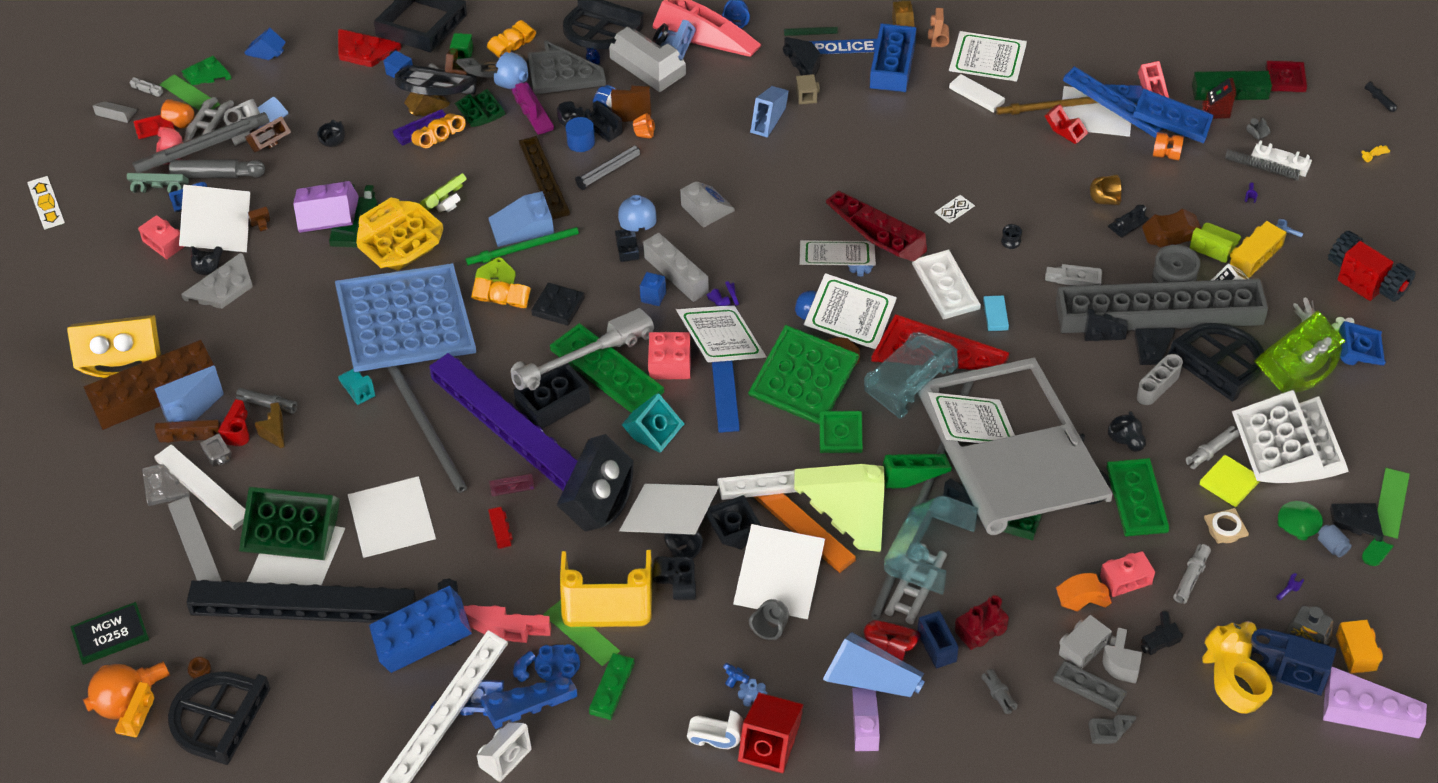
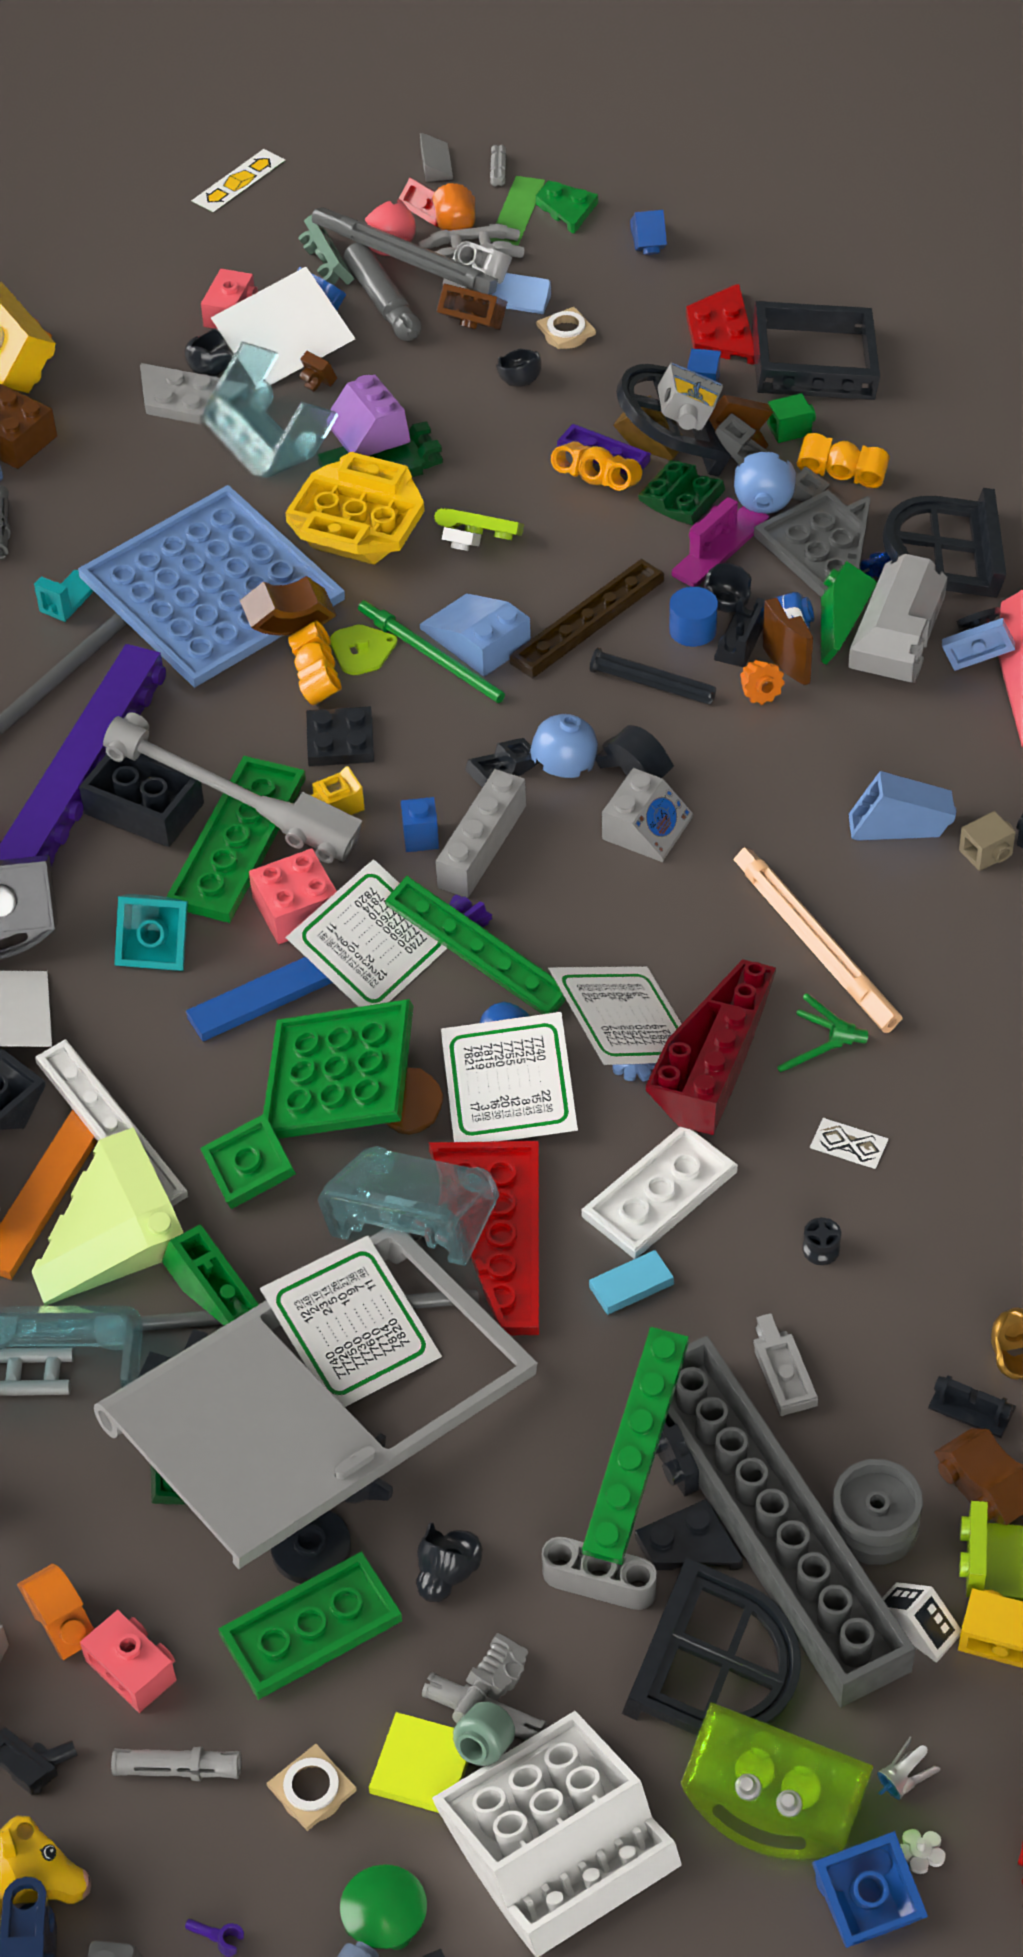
camera: 65 degrees right, 0 degrees up
(286, 265) = (240, 417): none -> clear light blue windscreen
(313, 114) = (568, 339): none -> tan piece
(436, 68) = (687, 396): none -> light grey torso
(457, 284) = (287, 607): none -> reddish brown brick
(605, 311) = (341, 791): none -> yellow window
(617, 73) = (841, 606): none -> green slope
(664, 187) = (636, 750): none -> black brick
(754, 293) = (476, 946): none -> green tile
(827, 171) = (819, 941): none -> light nougat piece
(891, 186) = (839, 1033): none -> green plant
(1113, 329) = (635, 1446): none -> green plate
(1200, 434) = (494, 1675): none -> light grey piece
(1235, 444) = (484, 1734): none -> sand green head

